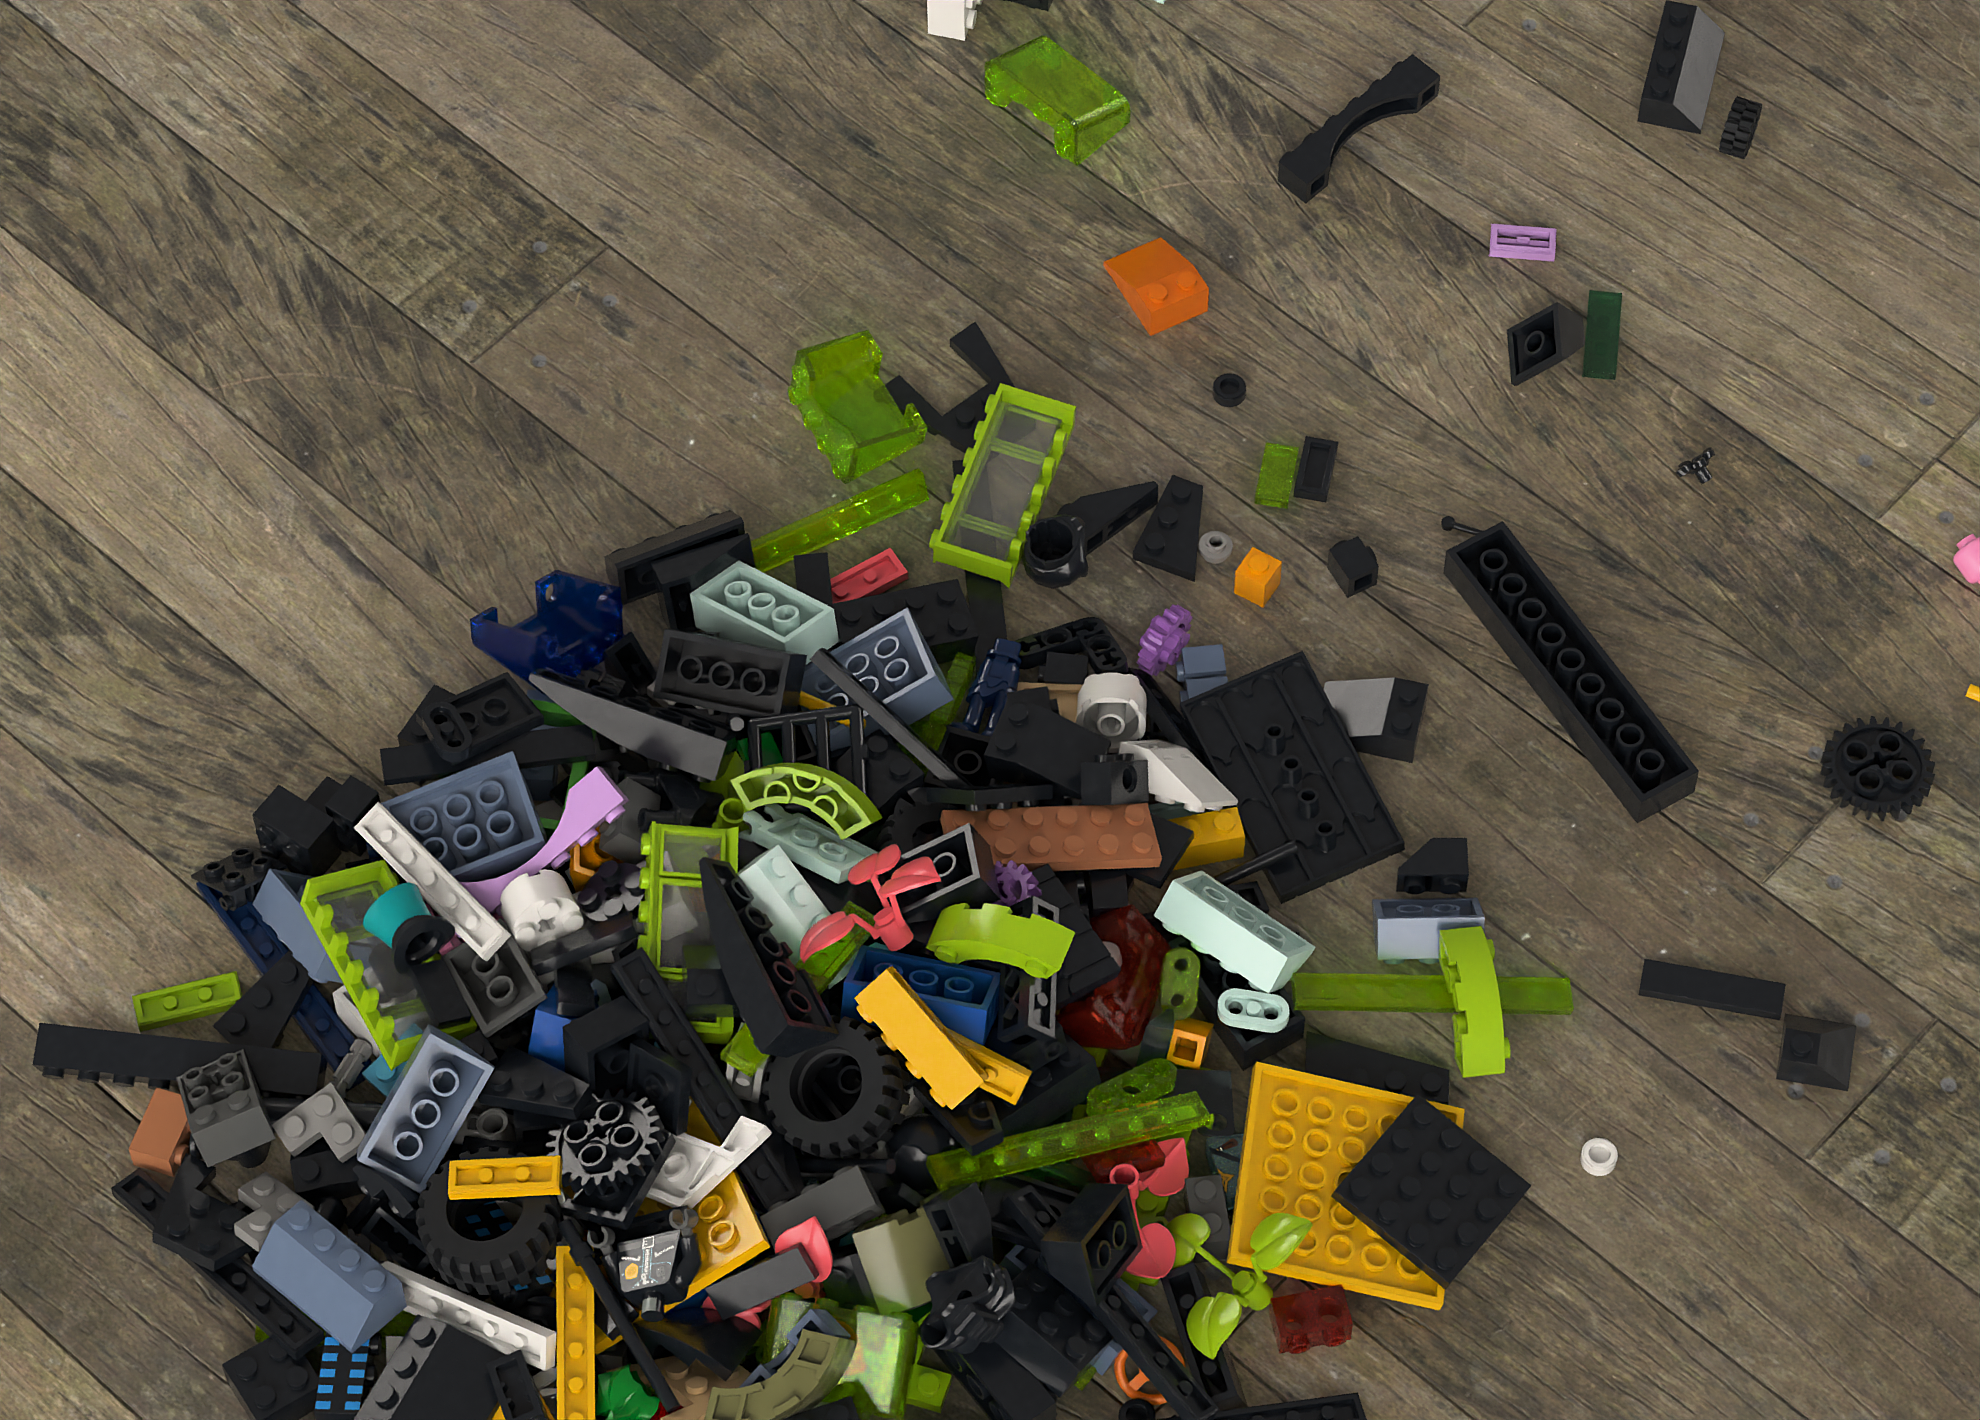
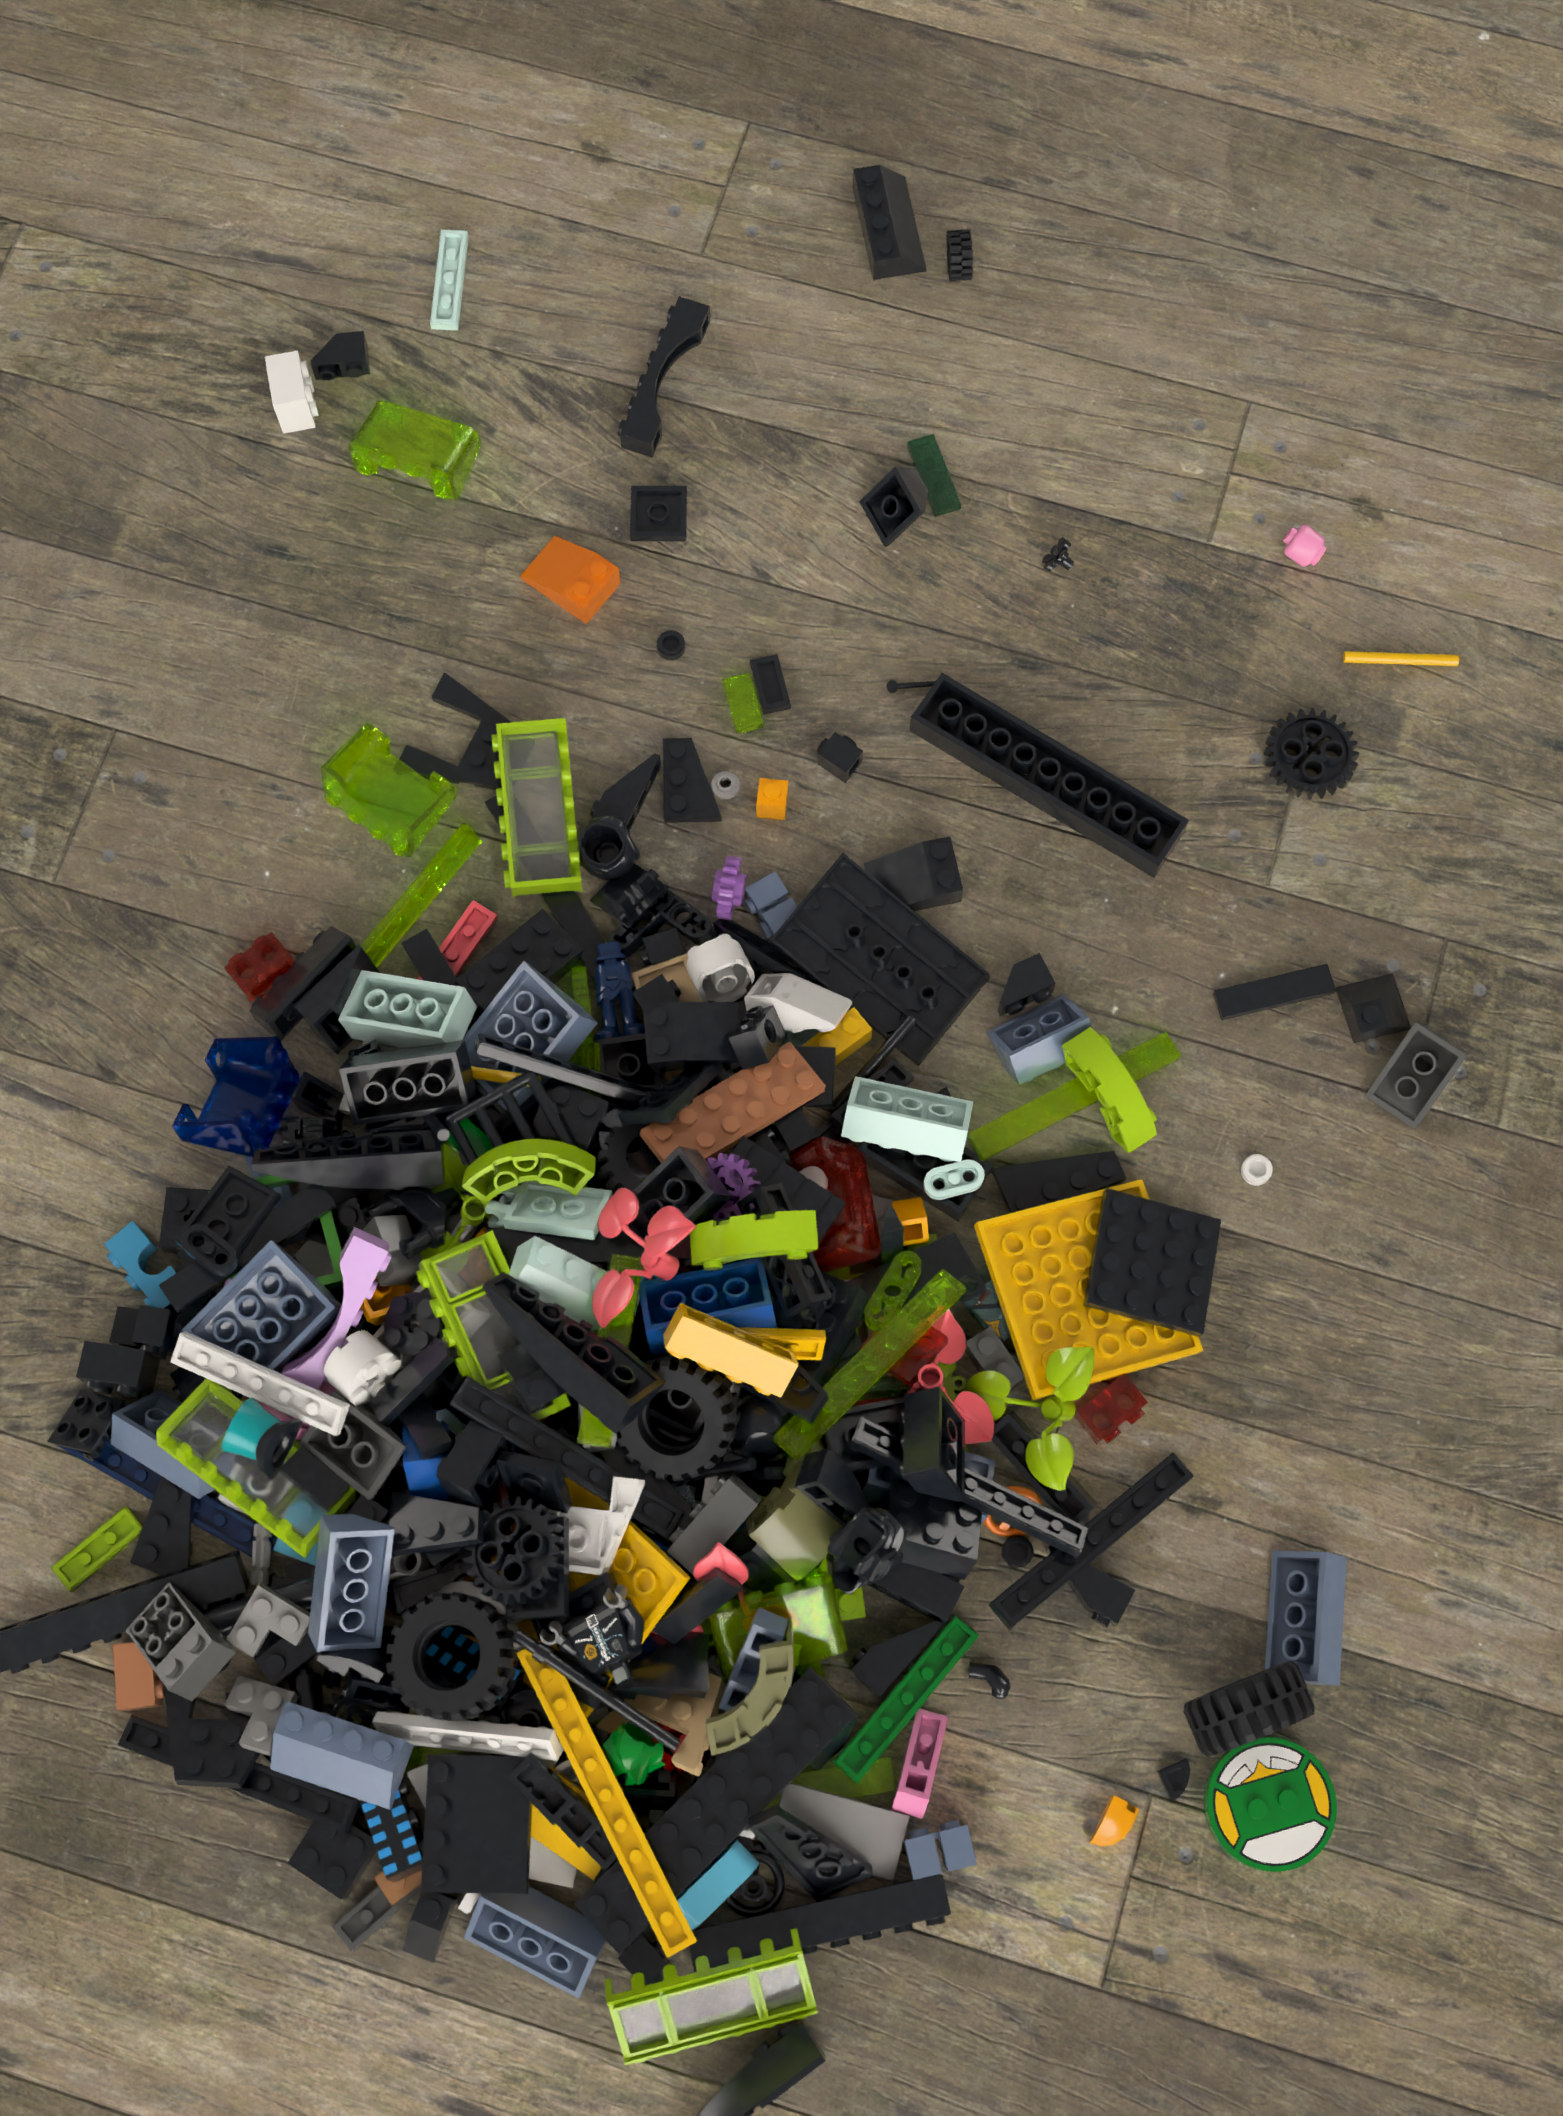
camera: 25 degrees left, 15 degrees up
(367, 733) = (131, 1250): none -> dark azure arch
(505, 1177) = (451, 1624): yellow tile -> none
(636, 516) = (264, 971): none -> clear red brick
(1058, 608) = (630, 895): none -> black hinge
(1180, 982) = (885, 1178): clear neon green plate -> none
(1282, 257) = (658, 513): none -> black plate
(1522, 246) = (838, 425): lavender tile -> none
(1829, 1132) = (1416, 1074): none -> dark grey slope

